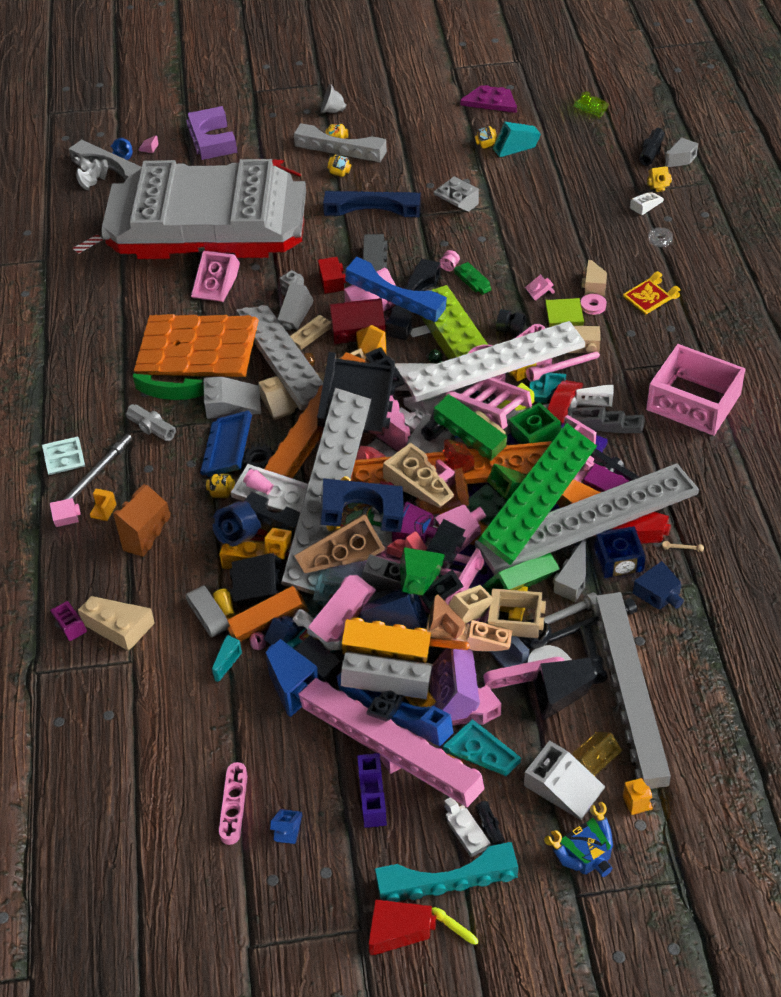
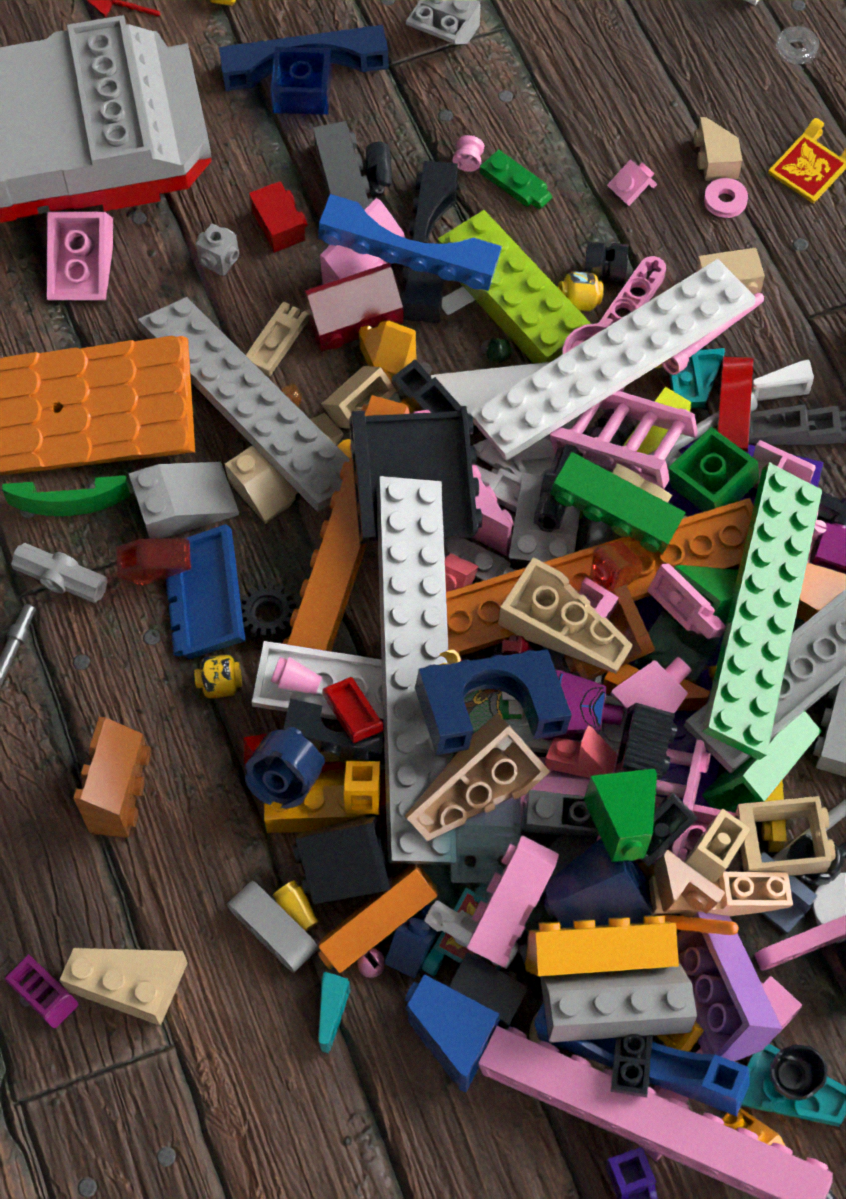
camera: 15 degrees left, 15 degrees up
(104, 504) = (29, 754): light orange panel -> none
(202, 421) = (152, 559): none -> clear red slope
(284, 503) = (352, 709): none -> red tile
(295, 306) = (237, 296): light grey slope -> none
(366, 213) = (301, 80): none -> clear blue brick
(396, 260) = (378, 167): none -> black hinge
(485, 734) = (797, 1072): none -> black hair
(491, 333) = (582, 290): none -> yellow head
(493, 481) = (685, 603): none -> bright pink hinge
(563, 311) = (684, 224): lime tile -> none

